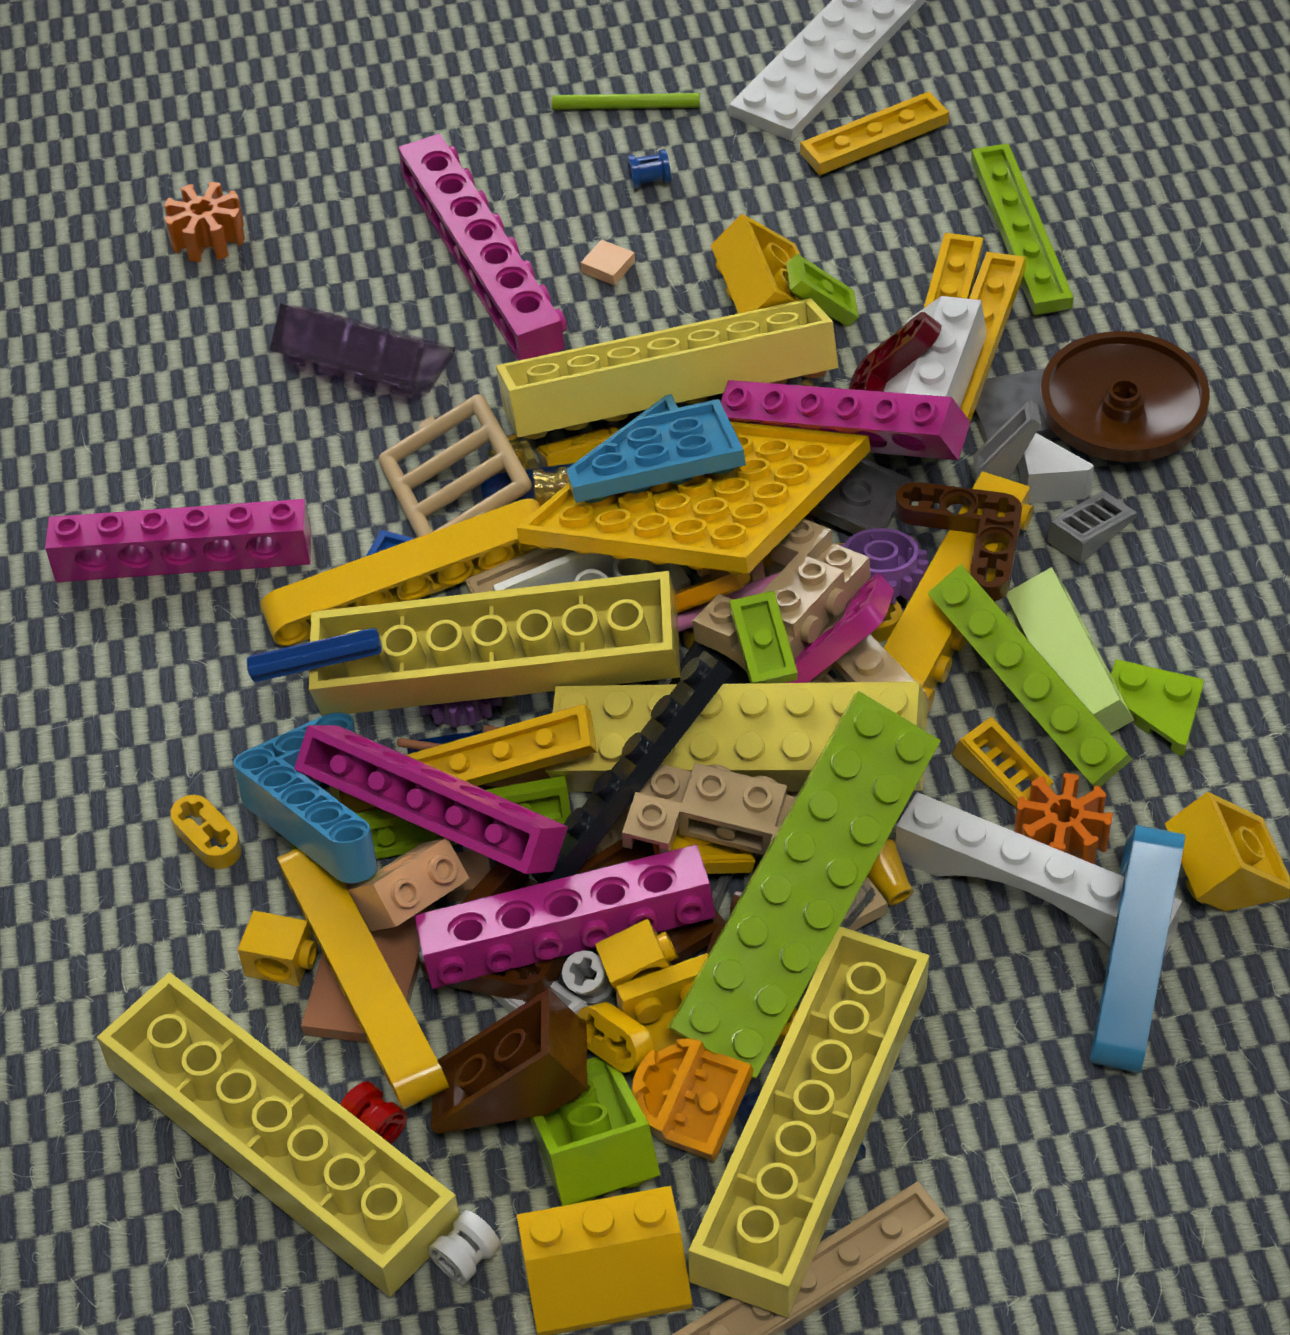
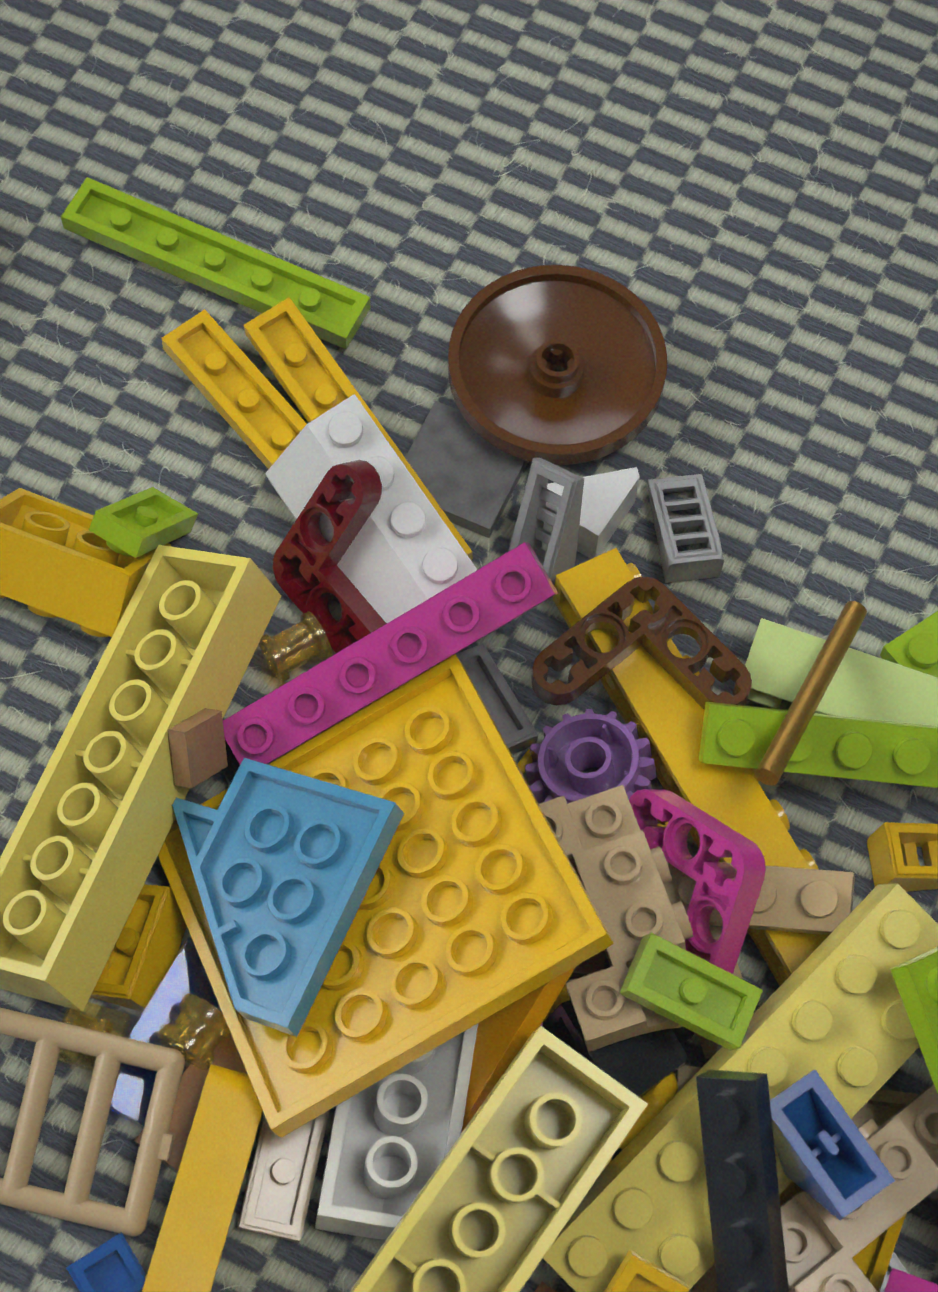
camera: 60 degrees left, 15 degrees up
(704, 377) = (198, 748): none -> medium nougat tile
(725, 737) = (825, 1148): none -> blue slope
(1020, 604) = (810, 693): none -> pearl gold bar

